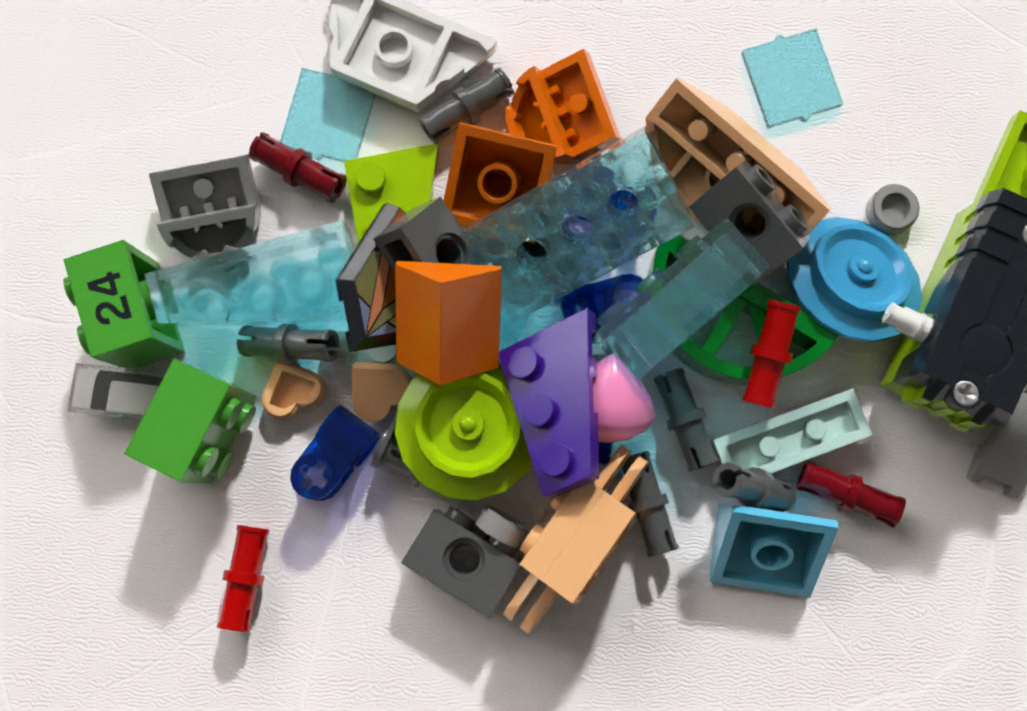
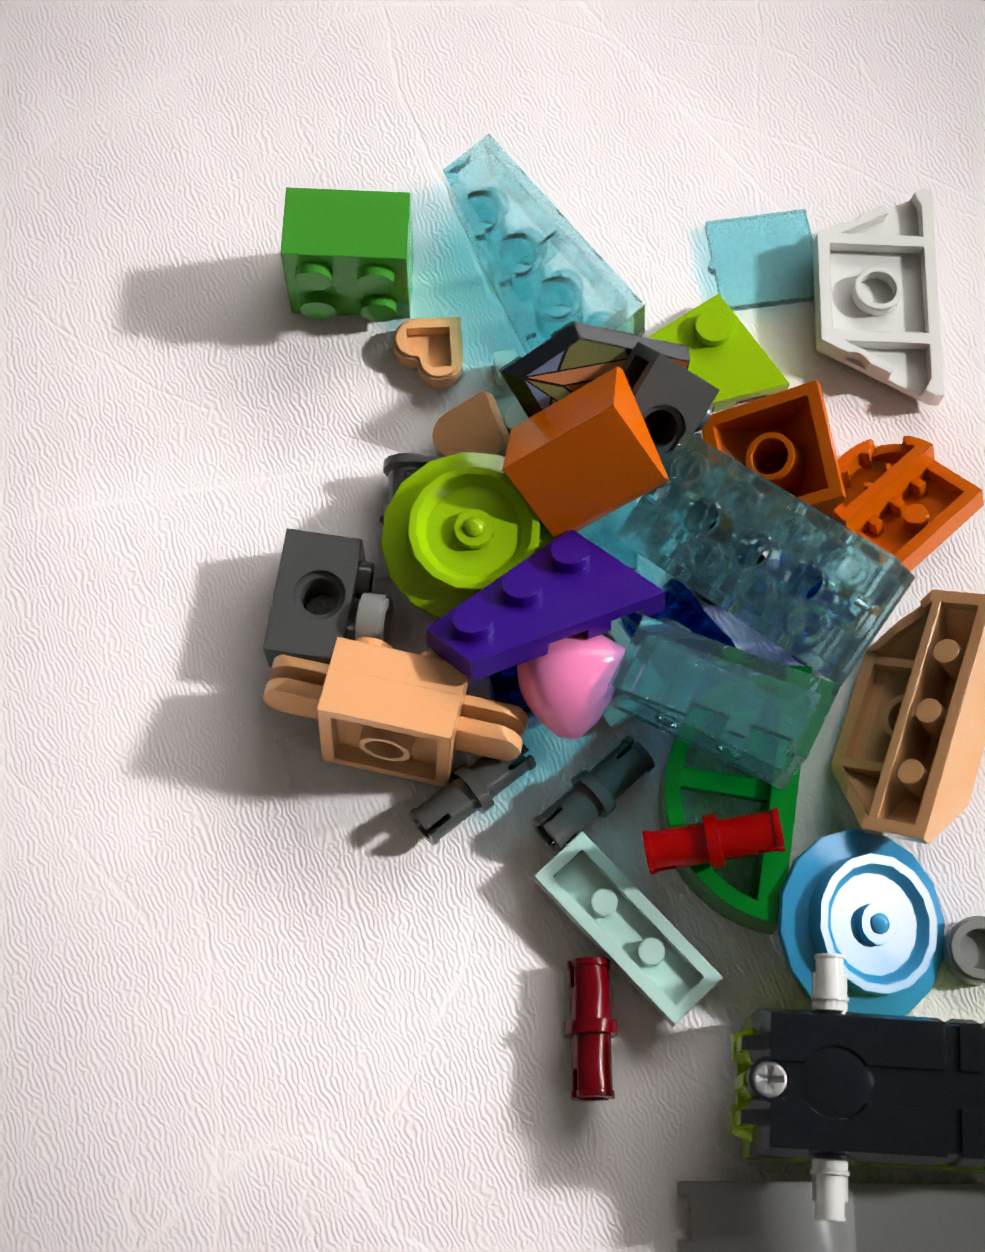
camera: 60 degrees right, 10 degrees down
(112, 391) = (347, 158): slope -> none
(117, 307) = (438, 123): bright green brick -> none
(207, 206) = (599, 176): light grey slope -> none
(243, 578) = (202, 381): red pin -> none
(288, 343) = (482, 317): dark grey pin -> none
(297, 167) = (687, 249): dark red pin -> none
(341, 447) = (381, 416): clear blue piece -> none
(466, 105) = (852, 397): dark grey pin -> none
(753, 188) = (862, 718): dark grey brick -> none
(754, 487) = (544, 895): dark grey pin -> none
(770, 549) = (478, 952): medium azure slope -> none

